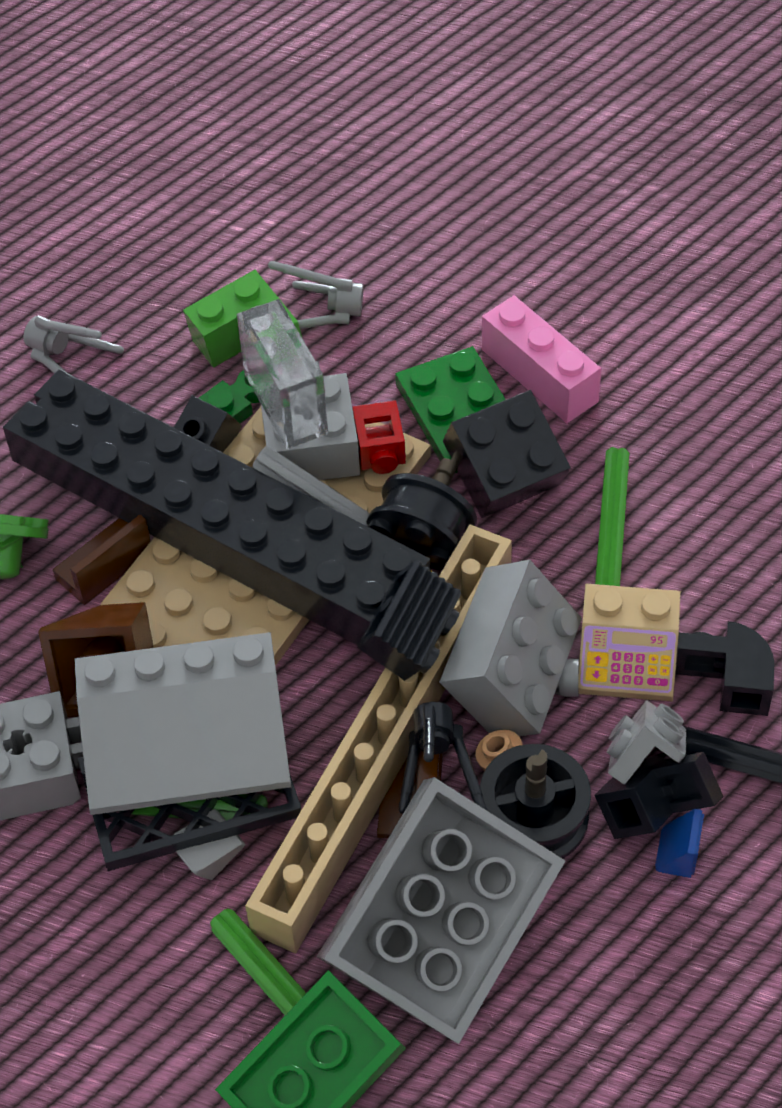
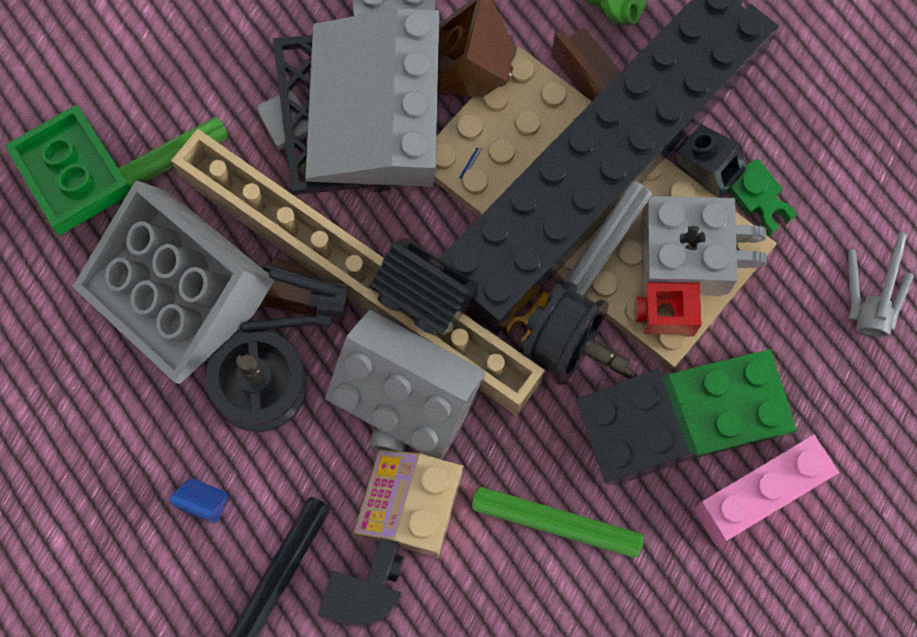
camera: 95 degrees right, 20 degrees up
(51, 338) = (853, 43): light grey plant -> none
(214, 318) = (851, 213): bright green brick -> none
(283, 373) = (710, 199): clear brick -> none
(494, 745) = (317, 375): light nougat plate -> none
(637, 736) = (283, 484): light grey bracket -> none
(656, 792) = (246, 480): black brick -> none

